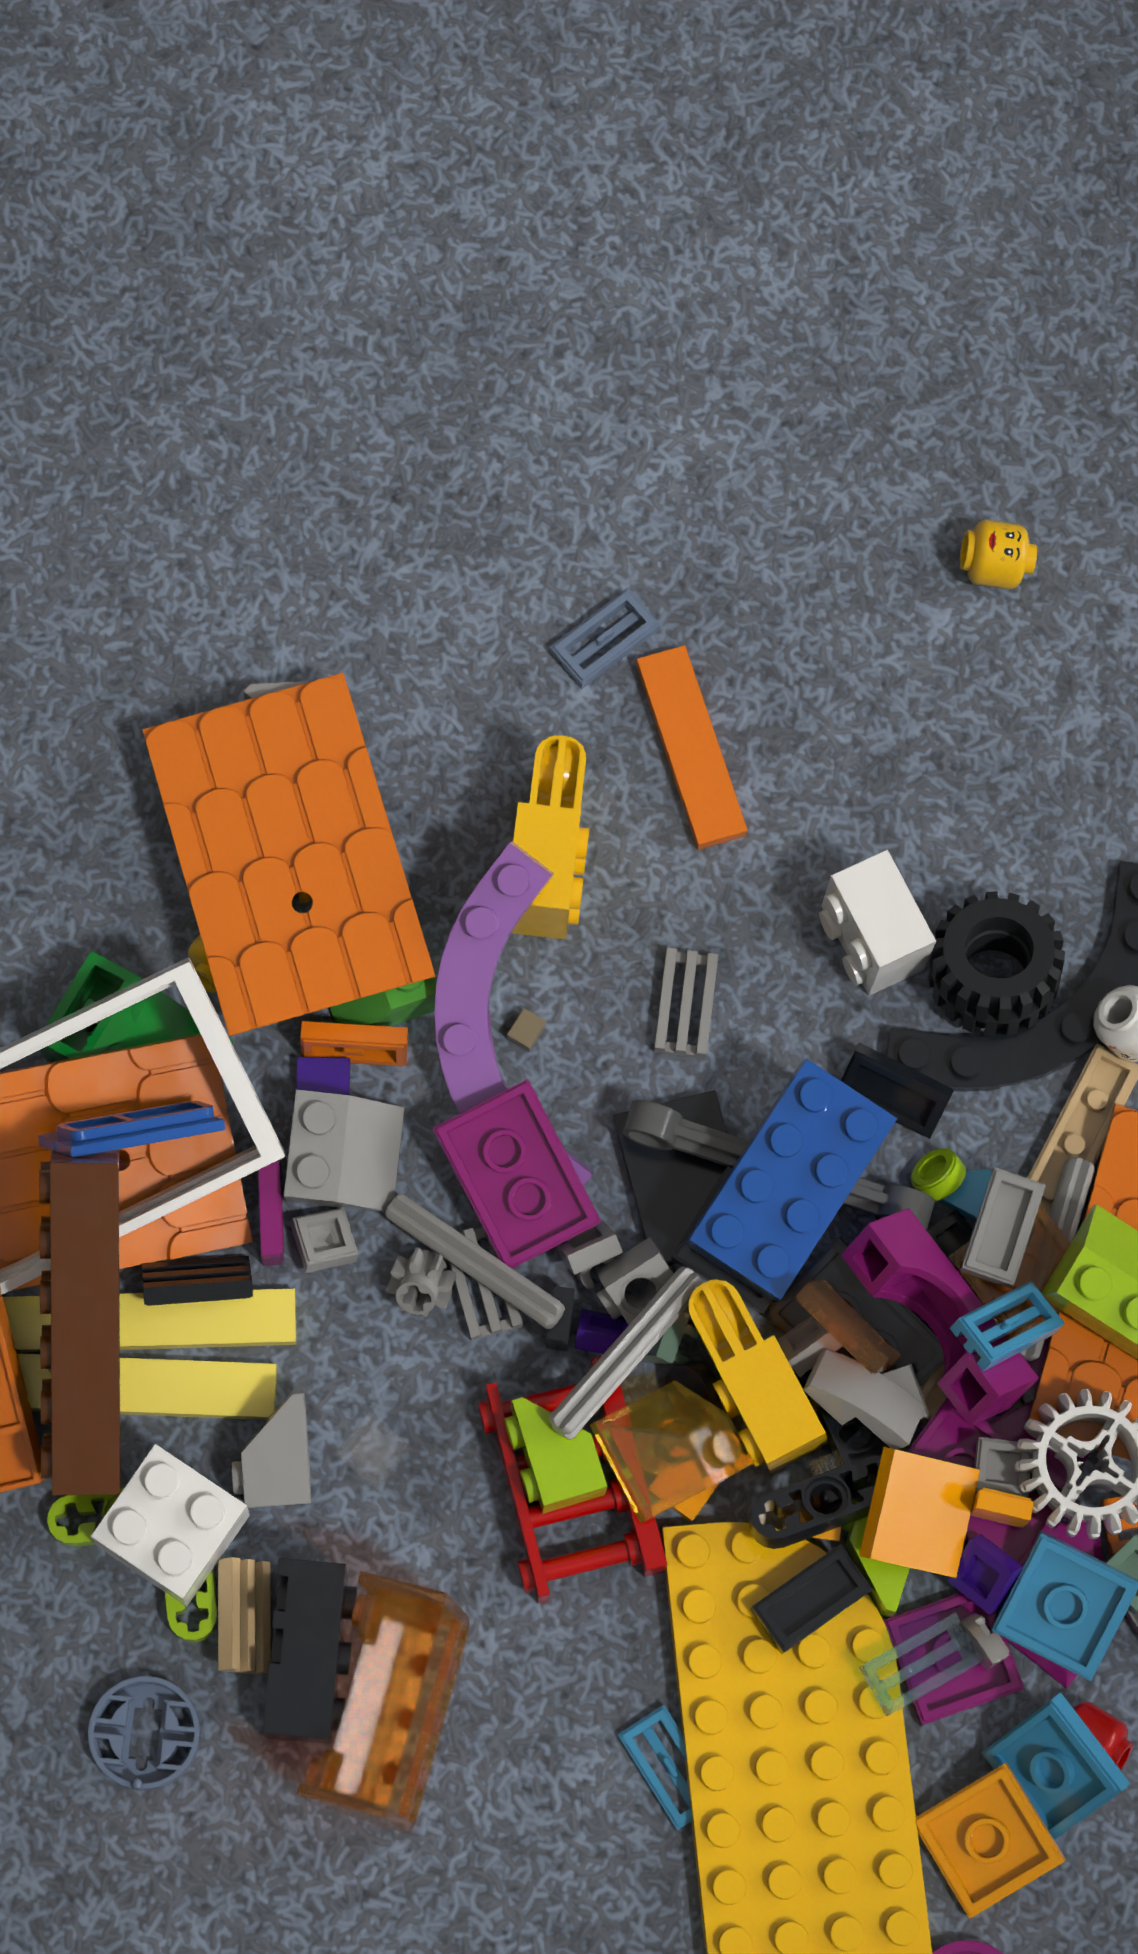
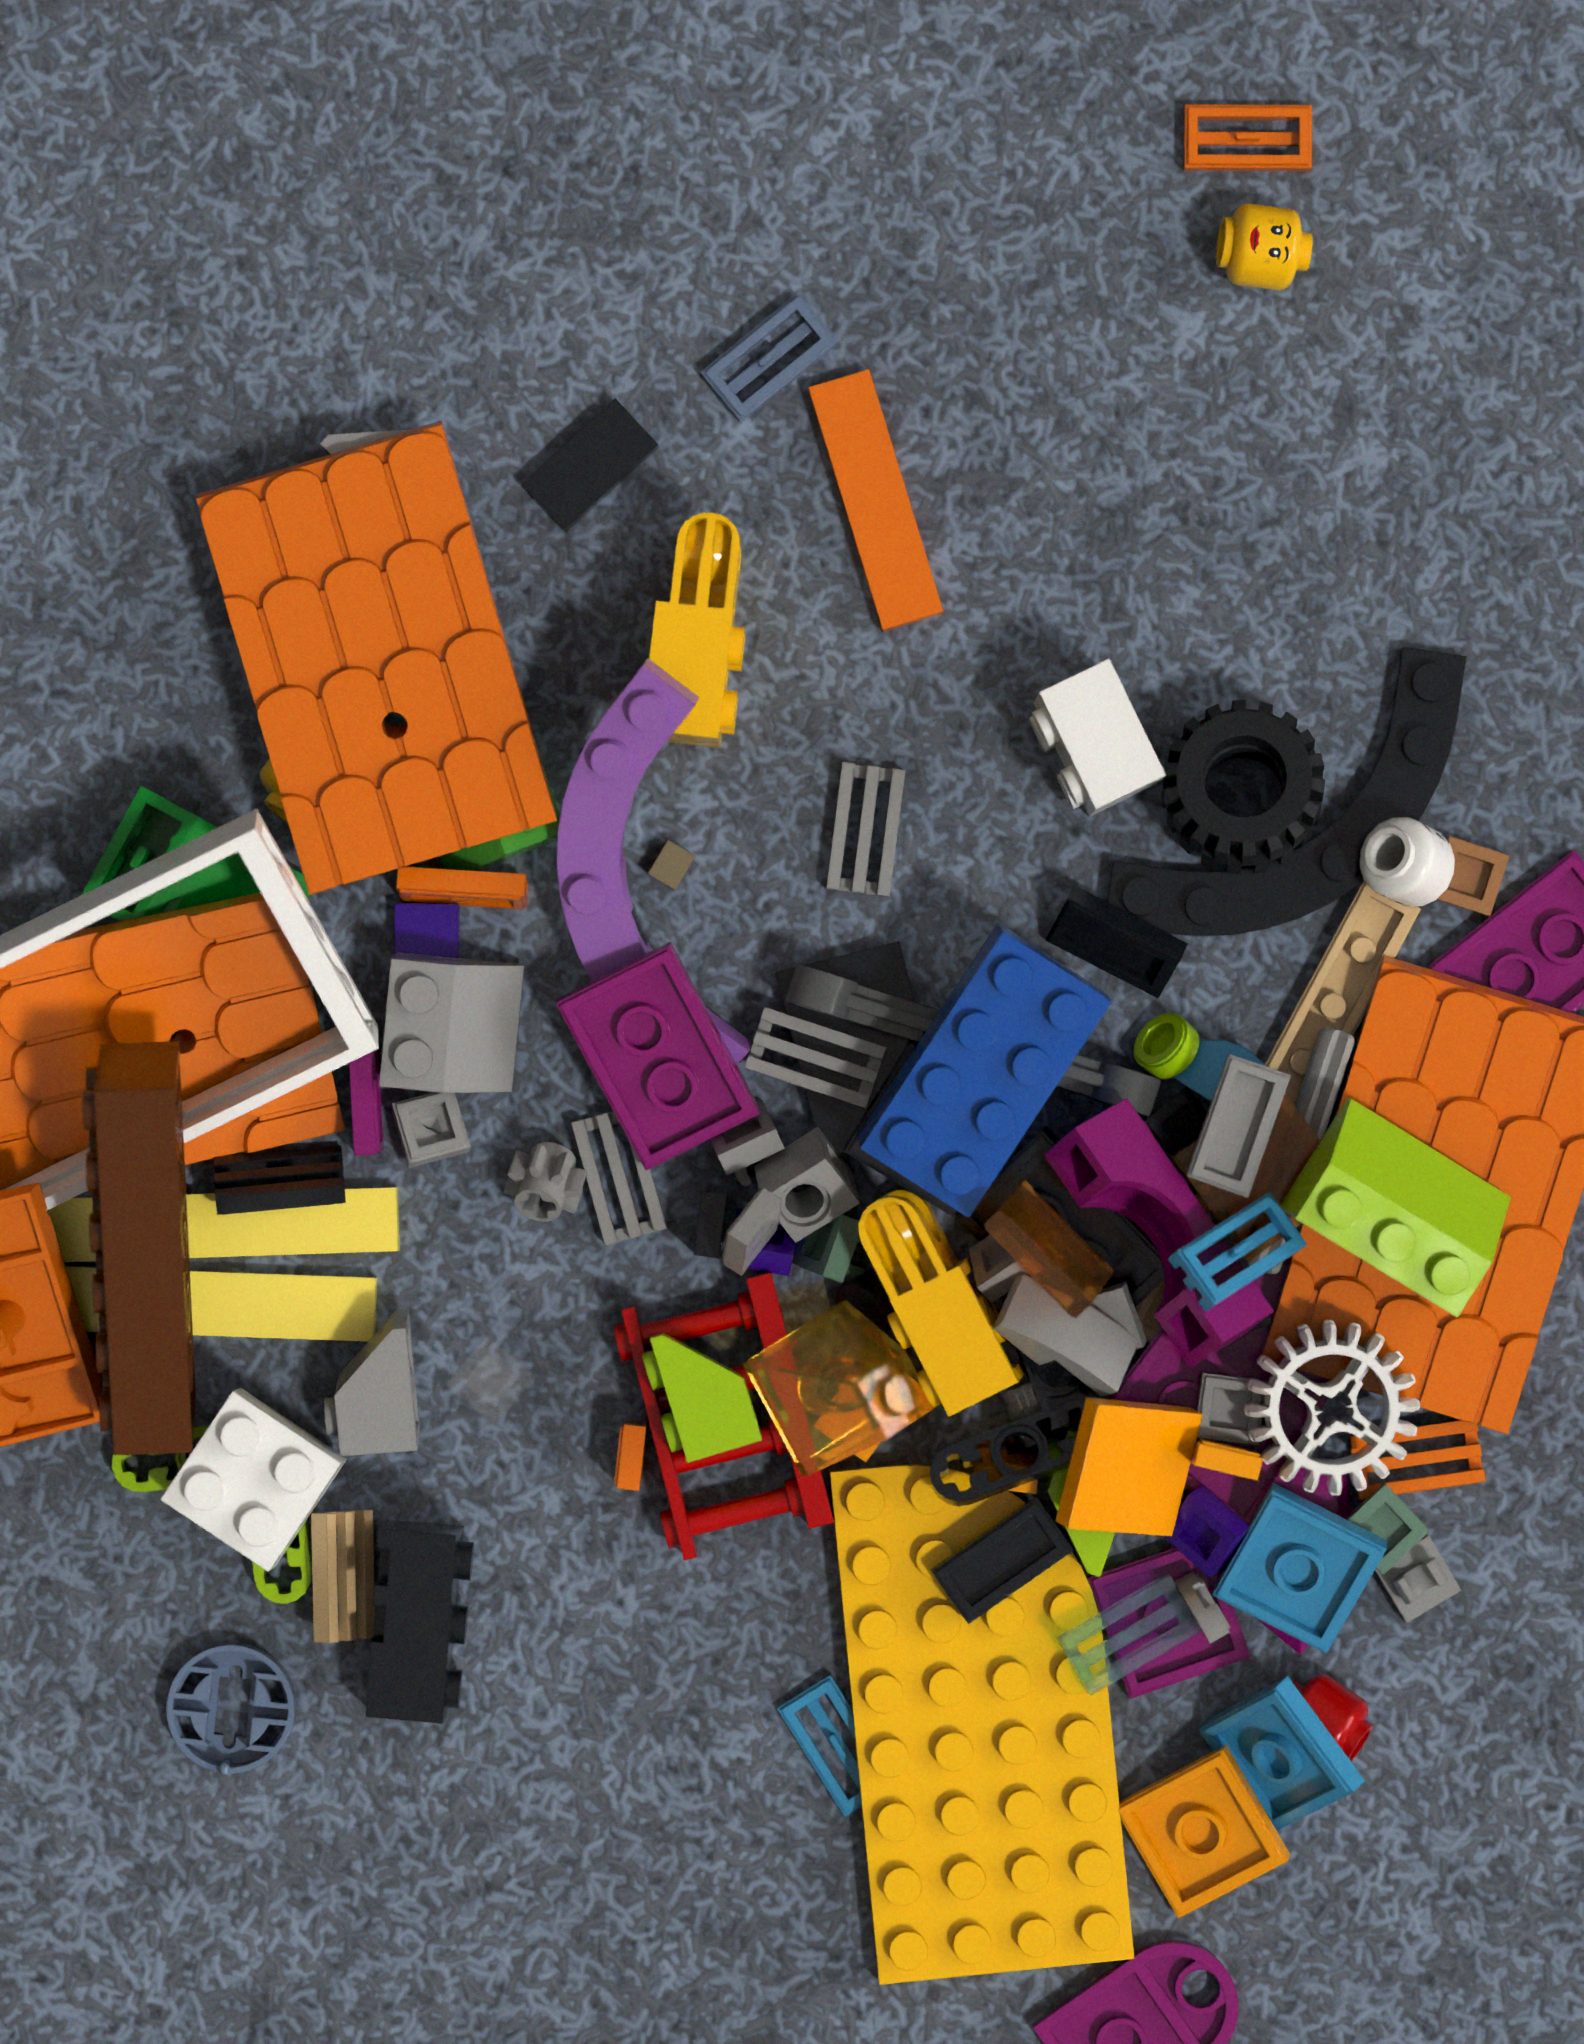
camera: 10 degrees right, 15 degrees up
(132, 1129) = (194, 1025): blue piece -> none
(393, 1705) = (512, 1695): clear orange windscreen -> none
(460, 718) = (590, 465): none -> black tile
(475, 1261) = (608, 1159): light grey axle -> none
(492, 1512) = (630, 1456): none -> orange tile
(597, 1313) = (751, 1231): none -> light grey tile
(624, 1354) = (784, 1282): light grey axle -> none
(653, 1162) = (763, 1040): none -> light grey tile
(981, 496) = (1208, 162): none -> orange tile

